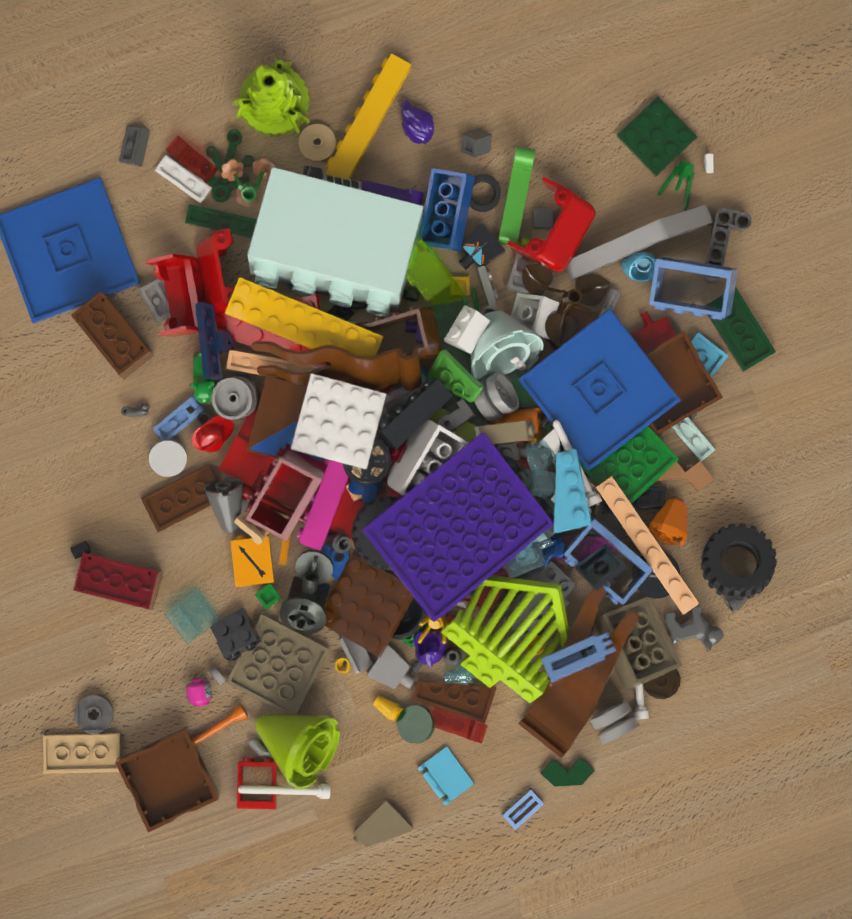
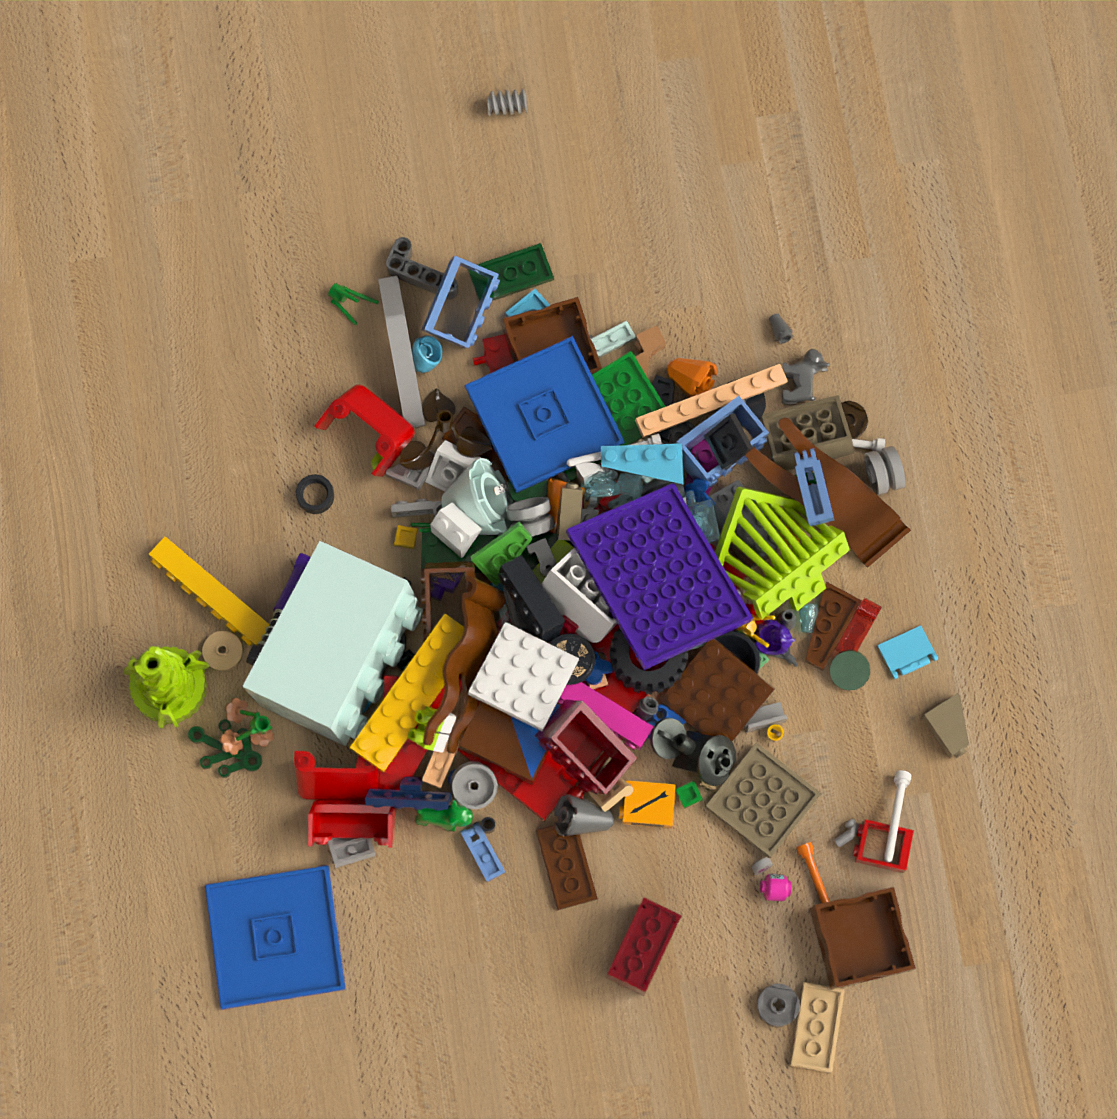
camera: 80 degrees left, 10 degrees down
(78, 549) = (600, 985): black hinge -> none
(112, 335) = (379, 901): reddish brown hose -> none
(133, 412) = (464, 900): dark grey arm -> none
(134, 146) = (180, 843): dark grey slope -> none
(167, 457) = (520, 871): tile -> none
(183, 179) = (228, 798): white tile -> none
(191, 159) = (210, 783): clear red plate -> none
(192, 616) = (694, 880): clear light blue slope -> none
(212, 434) = (507, 819): red piece -> none
(220, 220) = (283, 763): dark green plate -> none
(235, 635) = (722, 836): black plate -> none
(279, 338) = (440, 738): none -> lime hips
(284, 552) = (643, 771): light orange sticker -> none
(299, 744) = (849, 792): lime cone -> none
(388, 708) = (828, 695): yellow cone -> none
(391, 670) = (789, 684): light grey torso -> none
(417, 123) = (227, 544): dark purple hair -> none
(431, 275) = (393, 552): clear neon green windscreen -> none
(446, 209) = (311, 523): blue brick -> none
(476, 143) = (261, 490): dark grey panel -> none
(480, 249) = (372, 507): black torso -> none
(516, 195) = (295, 447): bright green beam -> none
(520, 801) = (971, 592): light blue tile -> none
(543, 218) = (354, 440): dark grey tile -> none
(560, 777) = (930, 523): dark green tile -> none
(611, 301) = (459, 393): light grey axle -> none
(656, 136) = (297, 313): dark green plate -> none
(708, 162) = (336, 268): white tile -> none
(738, 537) = (738, 295): black tyre -> none

